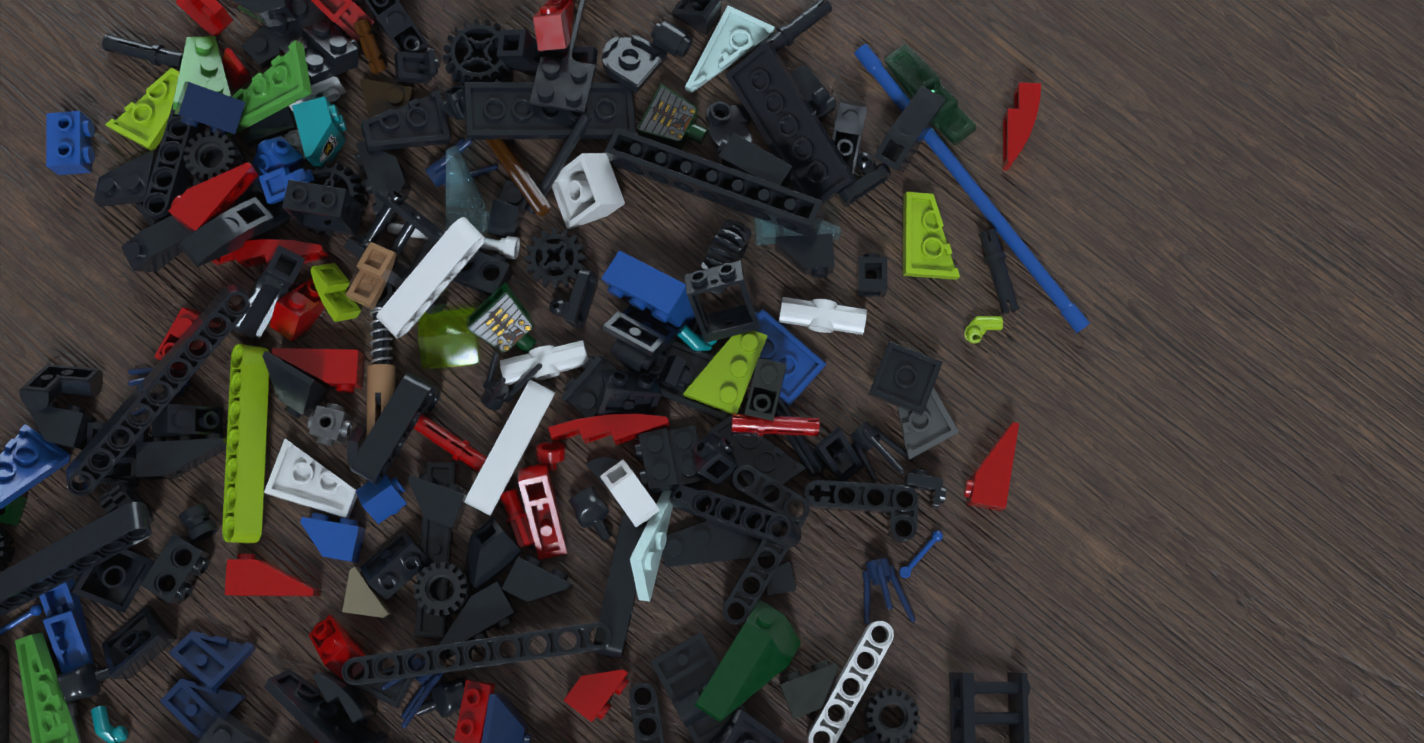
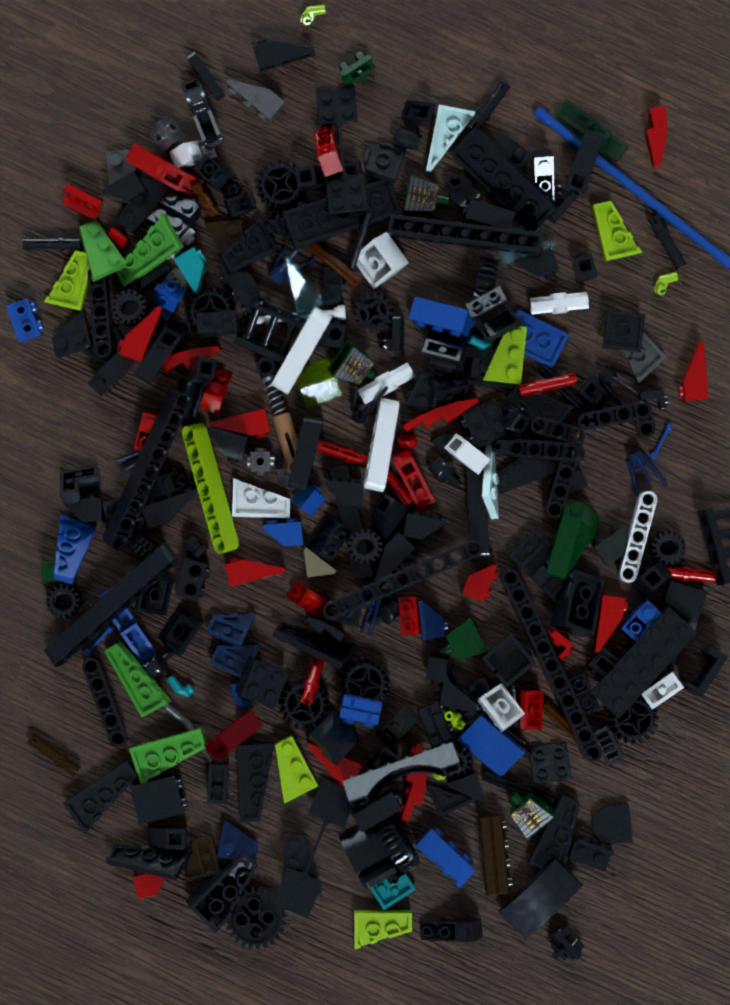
camera: 15 degrees left, 10 degrees up
(209, 108) = (118, 275): dark blue brick -> none
(275, 182) = (180, 313): blue plate -> none
(332, 287) = (231, 371): lime slope -> none
(373, 275) = (259, 358): medium nougat slope -> none
(765, 389) = (536, 364): pearl dark grey slope -> none

